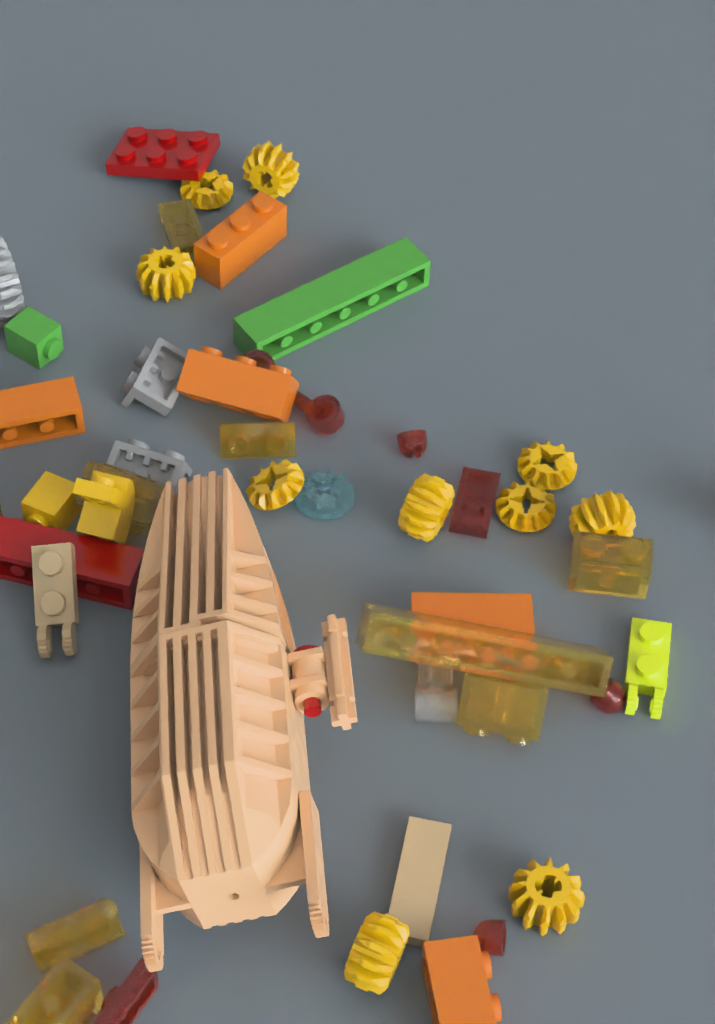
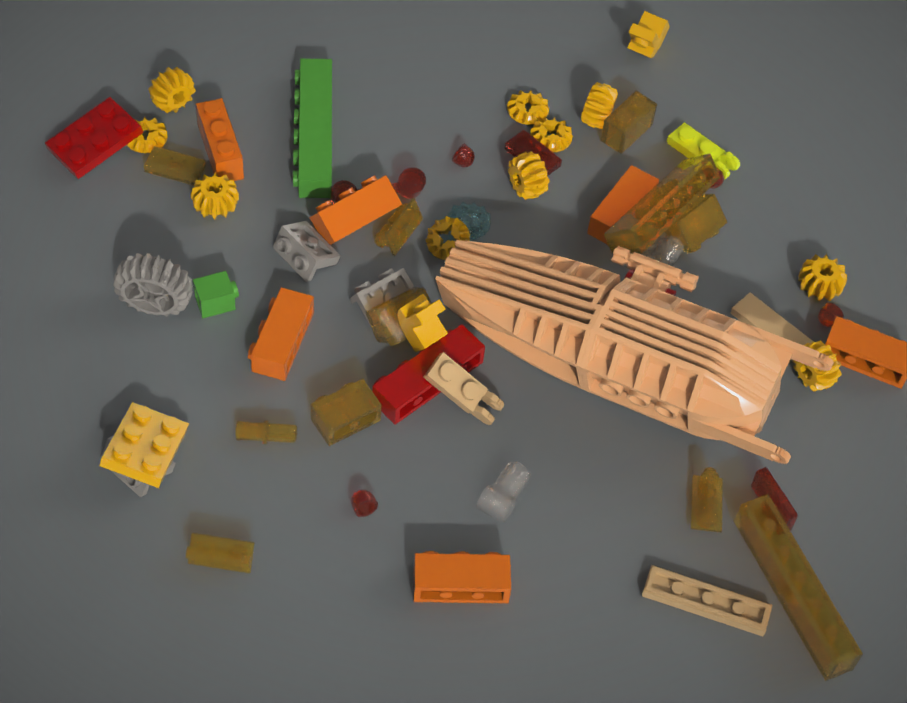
camera: 60 degrees left, 5 degrees up
(51, 502) = (375, 356): yellow brick -> none

